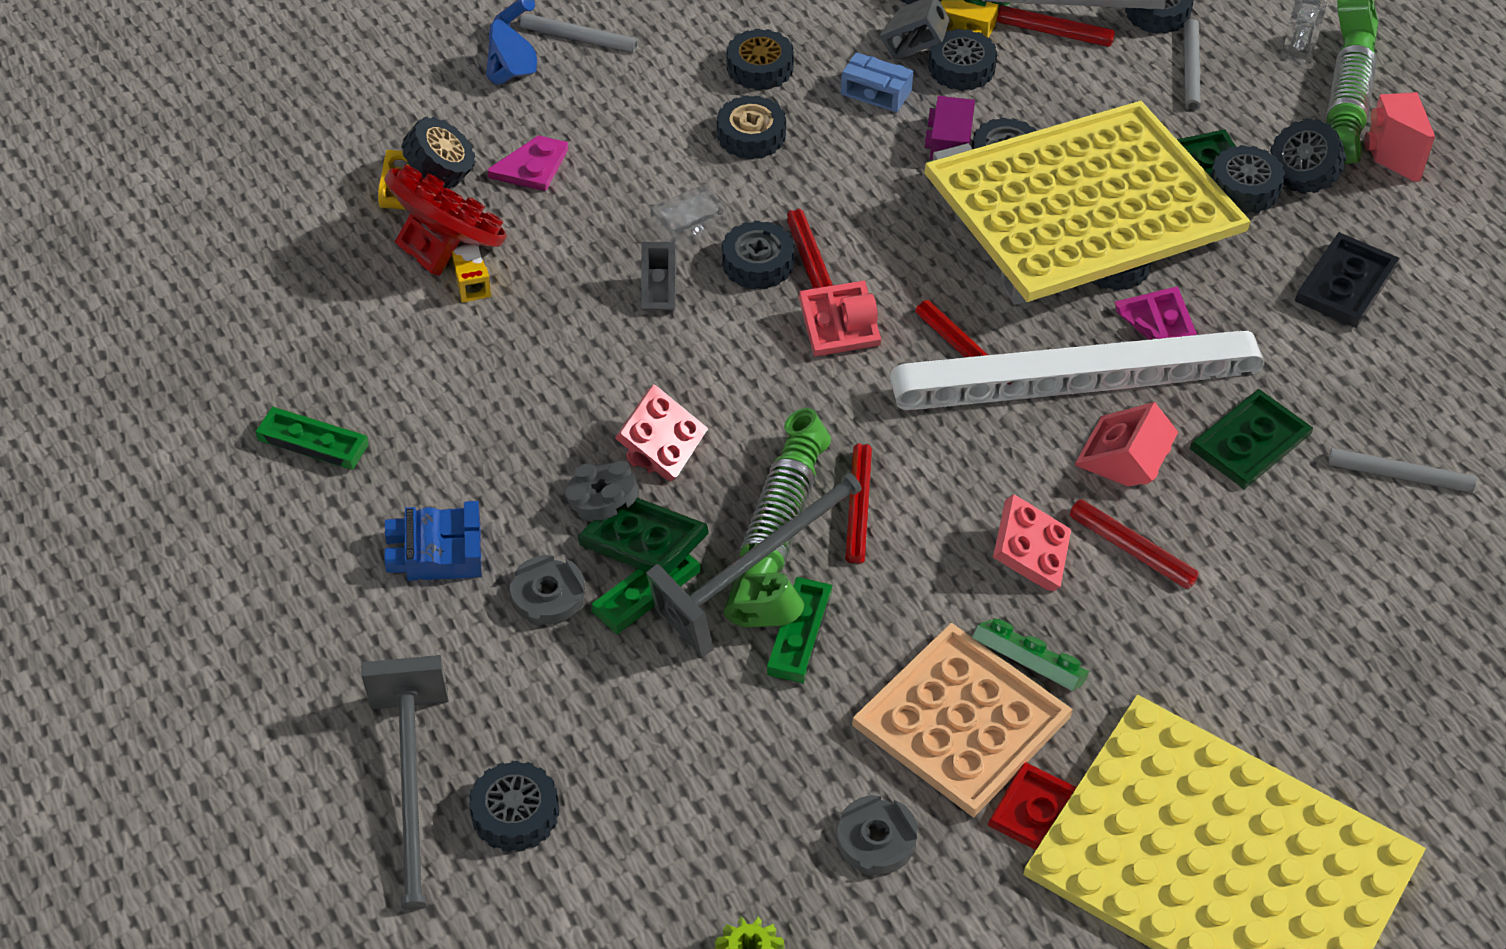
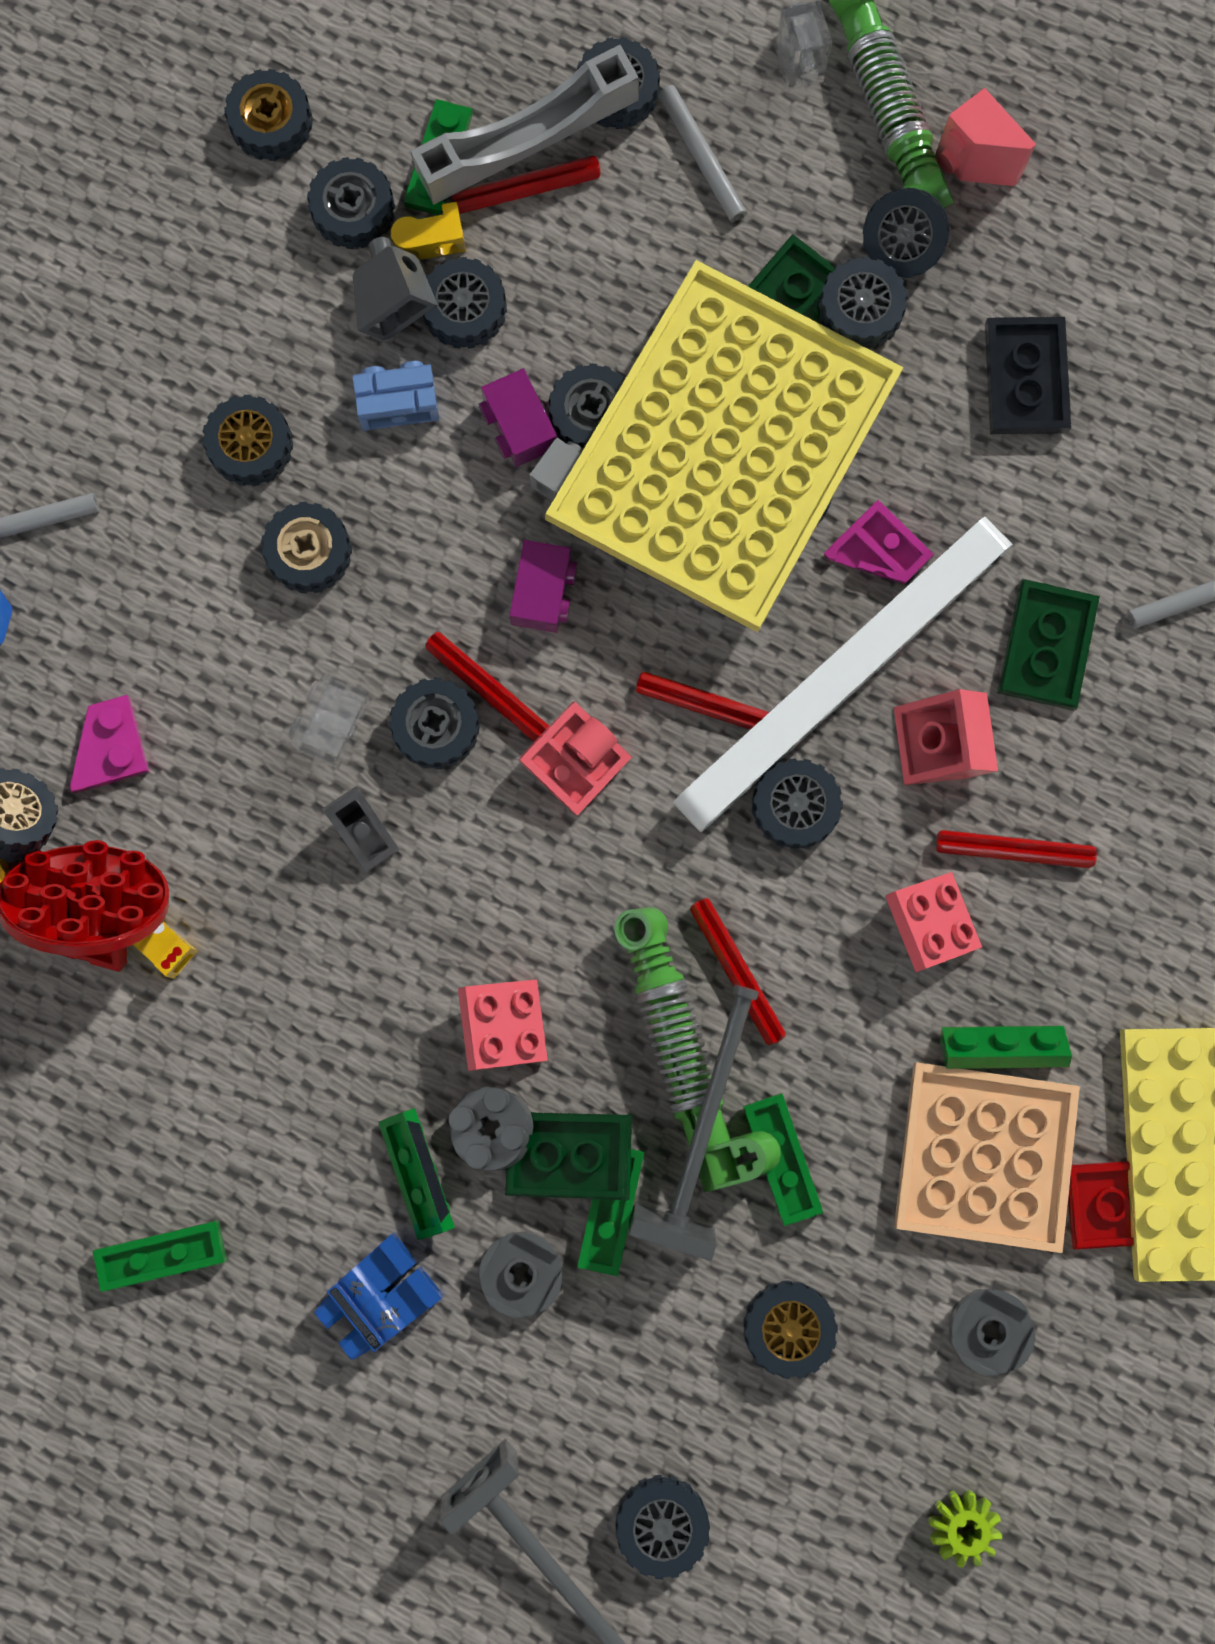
camera: 35 degrees left, 30 degrees up
(526, 488) = (416, 1174): none -> green plate
(718, 737) = (790, 1329): none -> black wheel
(893, 219) = (541, 586): none -> magenta brick
(982, 427) = (797, 804): none -> black wheel

